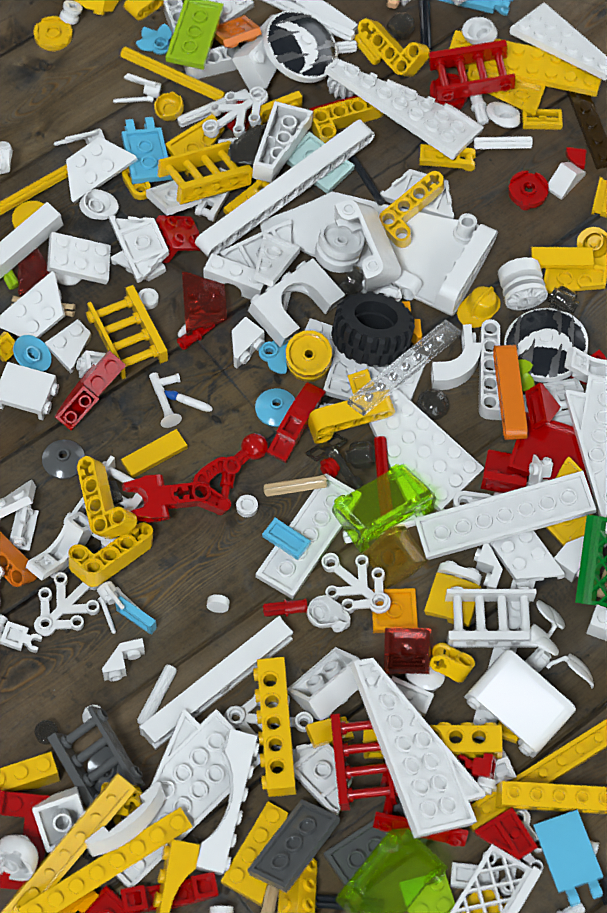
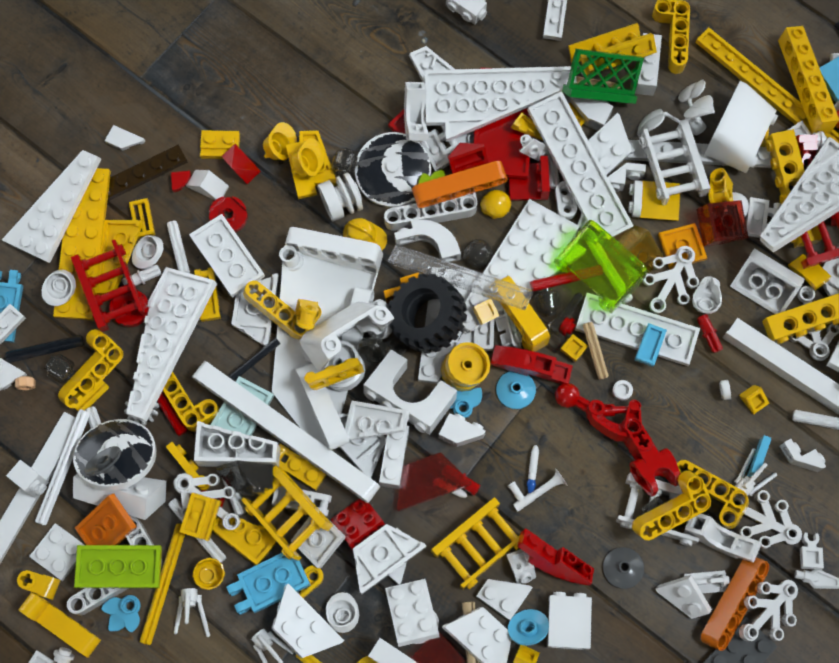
camera: 100 degrees left, 10 degrees up
(149, 298) = (433, 535): white tile -> none
(154, 453) = (595, 485): yellow tile -> none
(201, 634) = (754, 398): none -> yellow slope
(222, 101) = (200, 516): none -> yellow plate
(289, 22) = (103, 461): none -> dark grey dish
(292, 221) = (324, 410): none -> white beam
(304, 467) = (574, 348): none -> yellow plate
(326, 225) = (334, 374): none -> yellow plate
(396, 217) = (306, 313): none -> yellow piece
(481, 174) = (226, 255): none -> white plate
(485, 435) = (495, 204): none -> yellow hair
(569, 259) = (308, 158): none -> yellow piece
(581, 208) = (241, 164): none -> red slope

